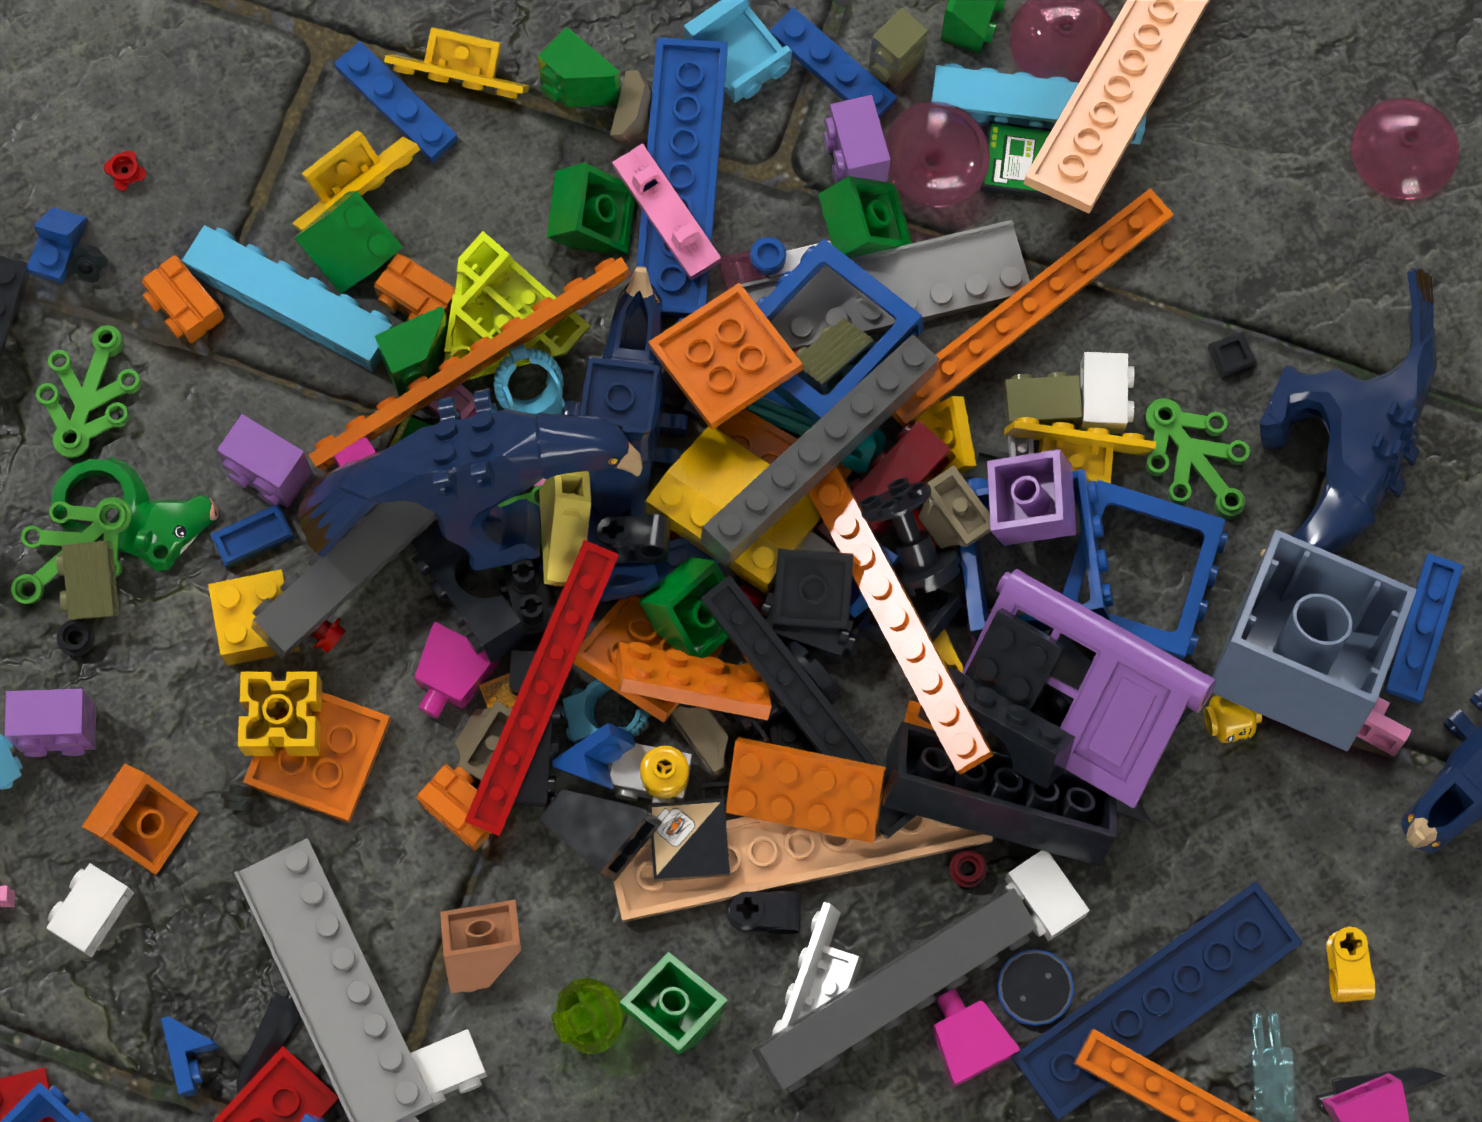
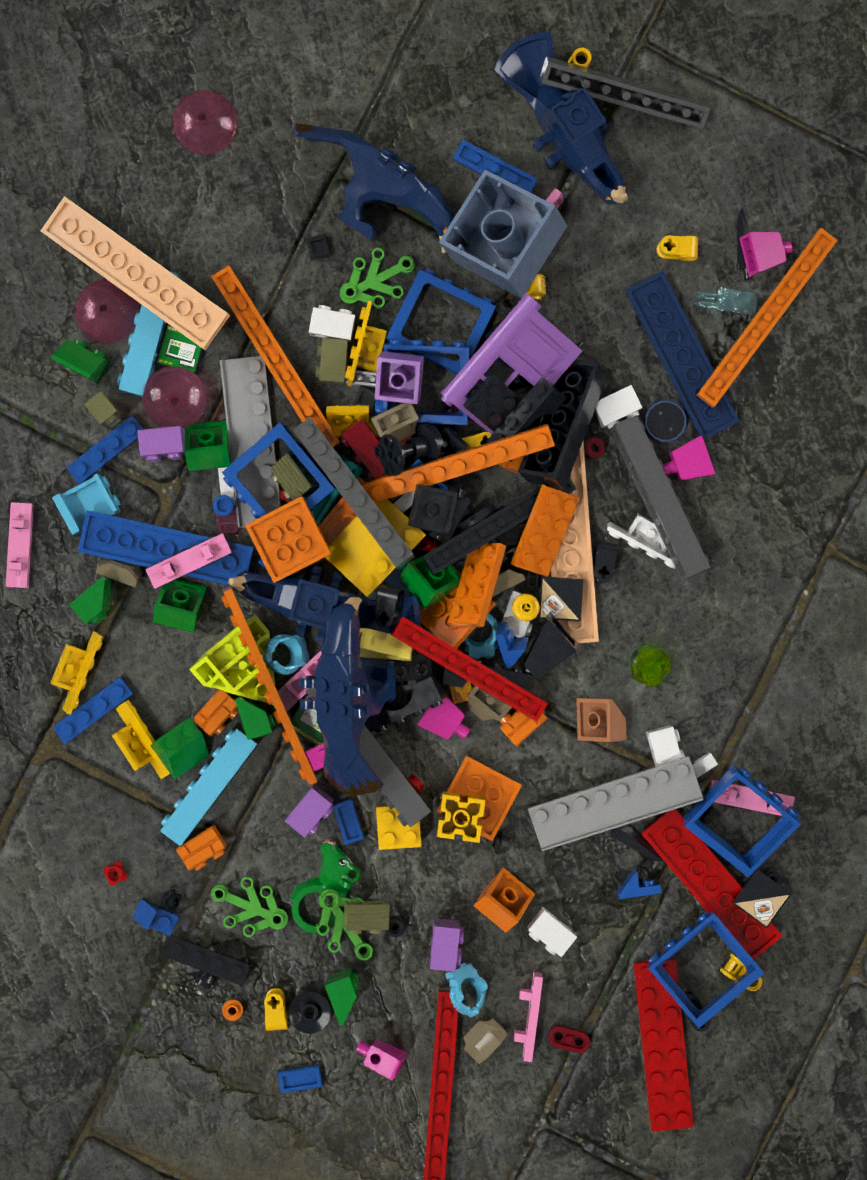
camera: 80 degrees left, 15 degrees up
(674, 1004) = (652, 620): green slope -> none

